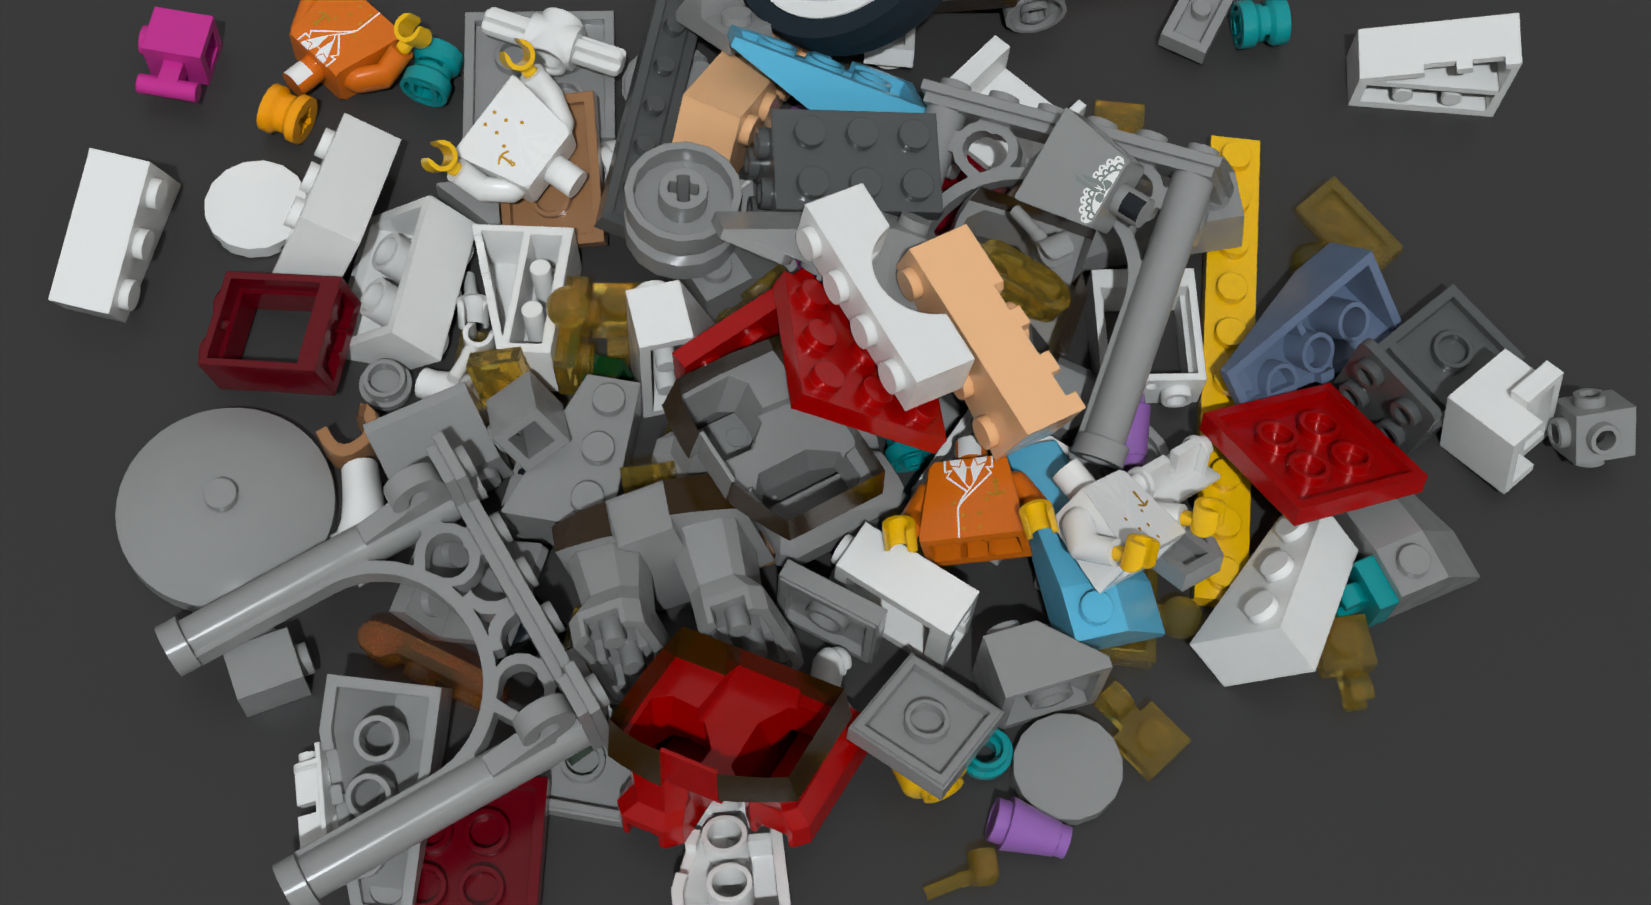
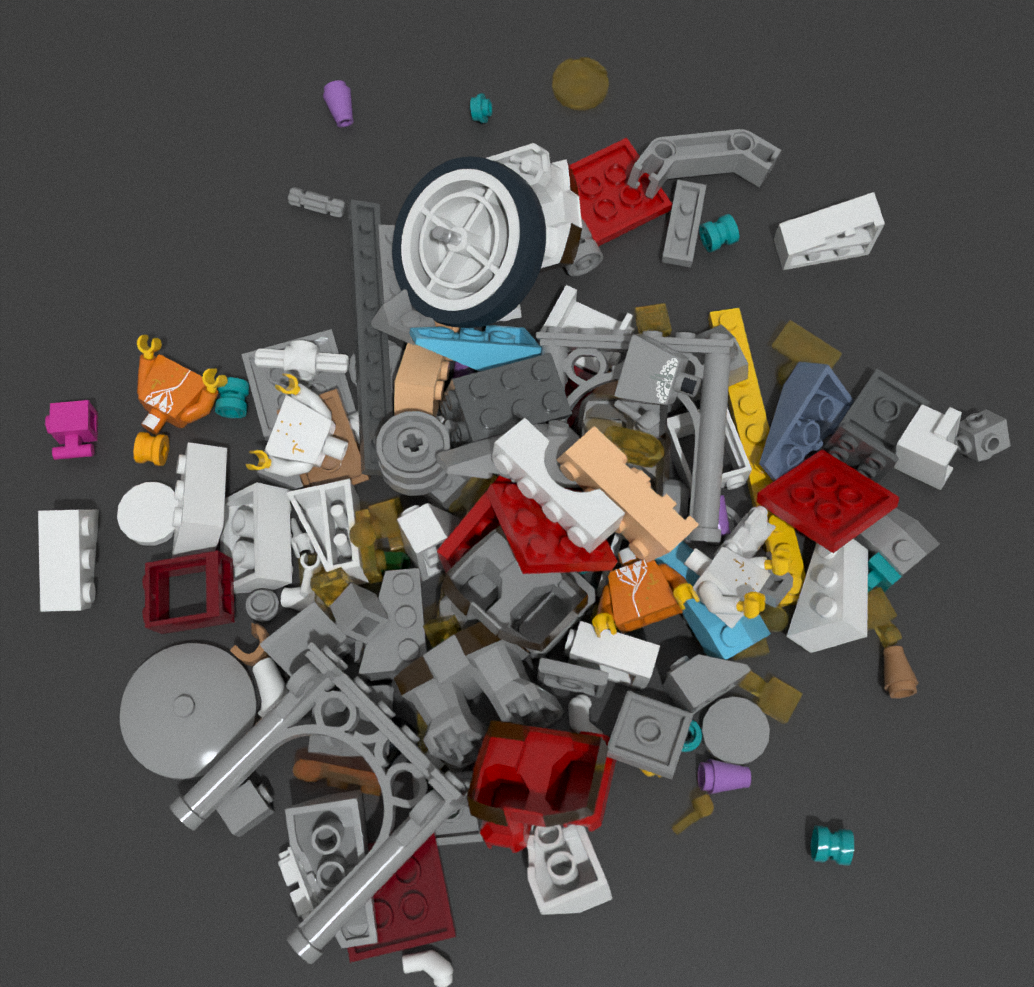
camera: 10 degrees left, 5 degrees up
(1354, 752) = (898, 674): none -> medium nougat cone

